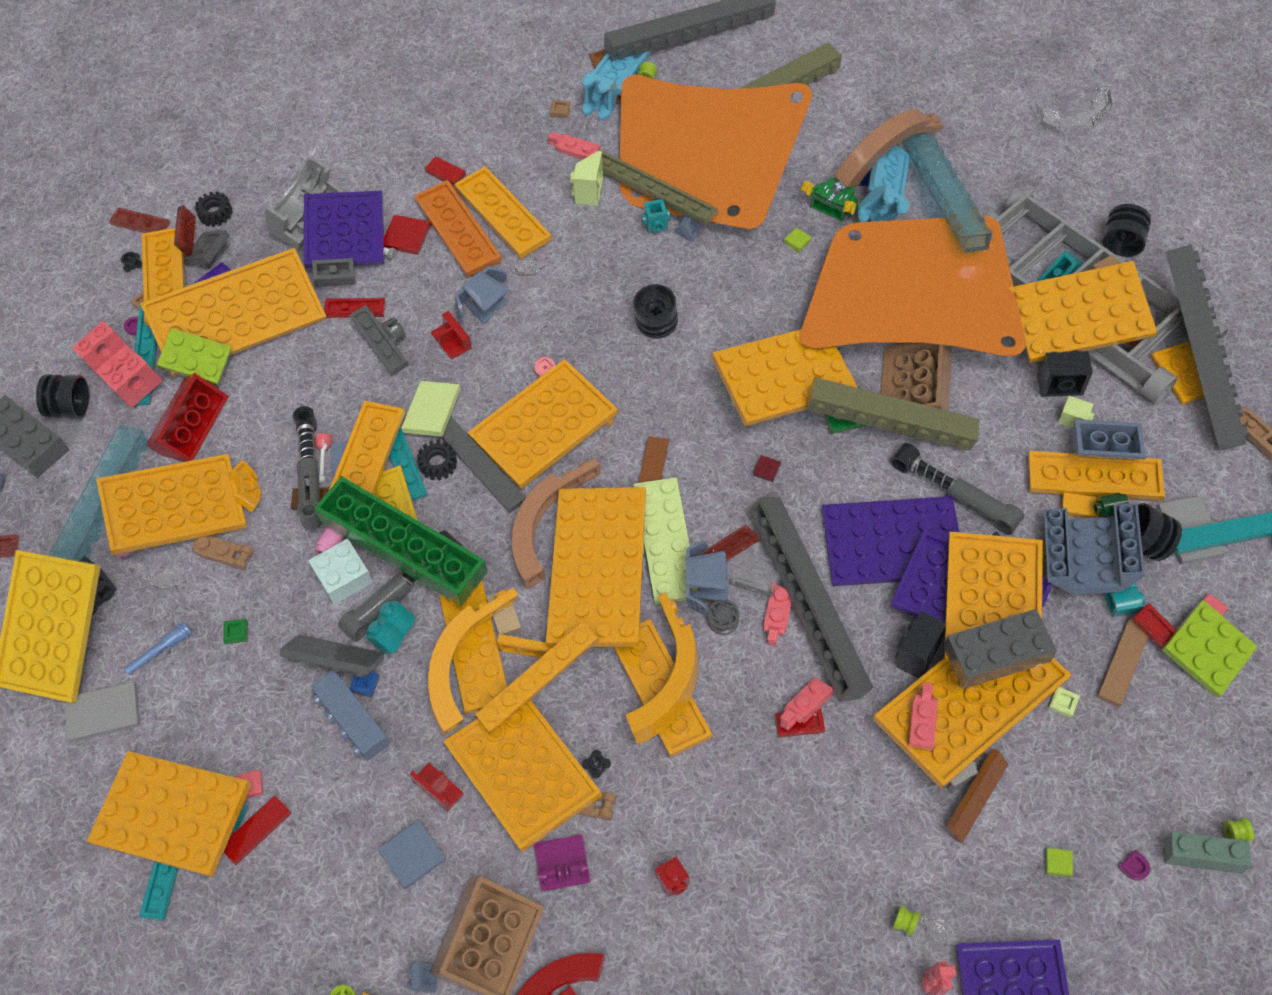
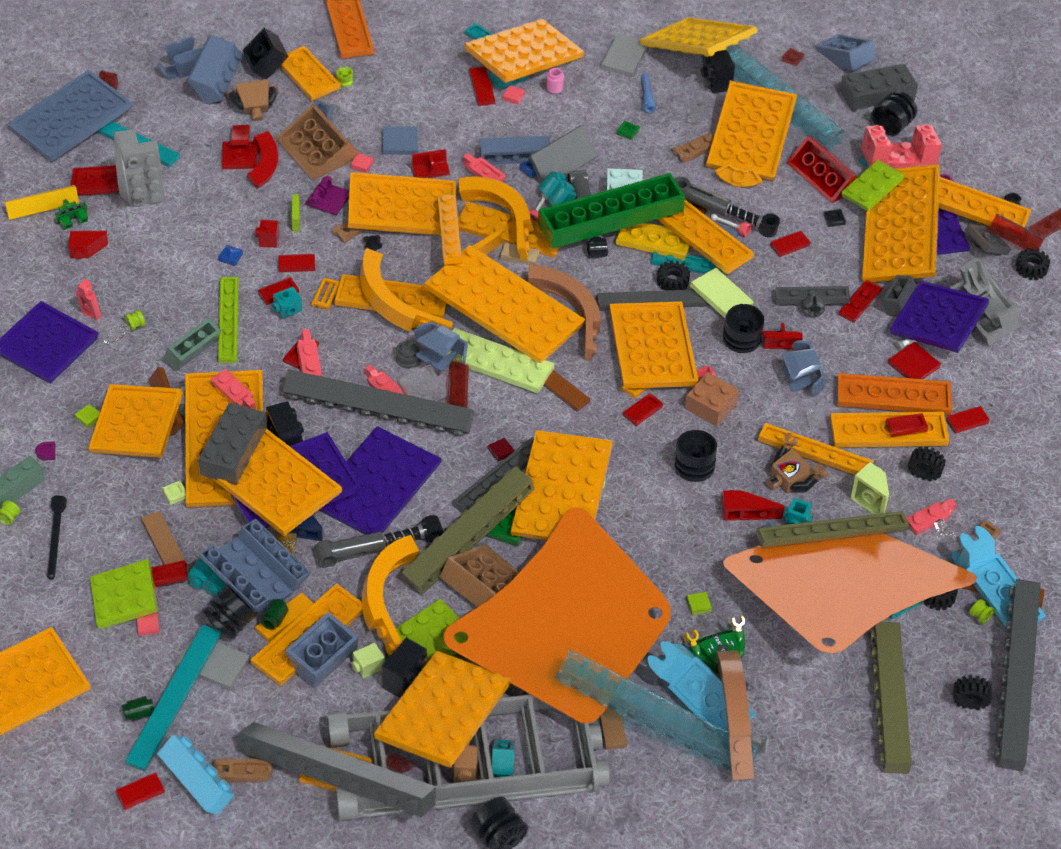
camera: 120 degrees right, 10 degrees down
(205, 745) = (555, 80): none -> bright pink brick
(251, 381) = (834, 218): none -> black tile
(315, 397) = (790, 243): none -> red tile
(404, 727) = (482, 168): none -> coral hinge
(436, 632) = (534, 212): none -> hinge
(471, 359) = (743, 328): none -> black wheel
(479, 866) = (362, 163): none -> coral tile
(492, 196) = (906, 425): none -> red tile
(527, 163) = (920, 457): none -> black tyre
(569, 247) = (814, 450): none -> light orange plate
(574, 341) = (712, 399): none -> nougat brick
(609, 246) = (792, 471): none -> medium nougat torso
(616, 874) = (295, 212): none -> lime tile
(625, 392) = (643, 409): none -> red tile
(677, 261) = (747, 506): none -> red slope
(685, 821) = (296, 263): none -> red tile
(704, 767) = (322, 304): none -> light orange tile
(729, 901) = (230, 255): none -> blue tile
(733, 40) = (972, 692): none -> black tyre
(738, 809) = (267, 292): none -> red tile
(756, 776) = (287, 302): none -> teal brick
(797, 451) = (518, 458): none -> dark grey tile
(817, 829) = (228, 320): none -> lime tile
(892, 824) = (192, 344): none -> sand green brick
(1001, 389) = (429, 626): none -> lime plate
(1003, 453) = (373, 607): none -> light orange arch
(1033, 794) = (135, 420): none -> light orange plate
(1182, 792) = (58, 505): none -> black piece

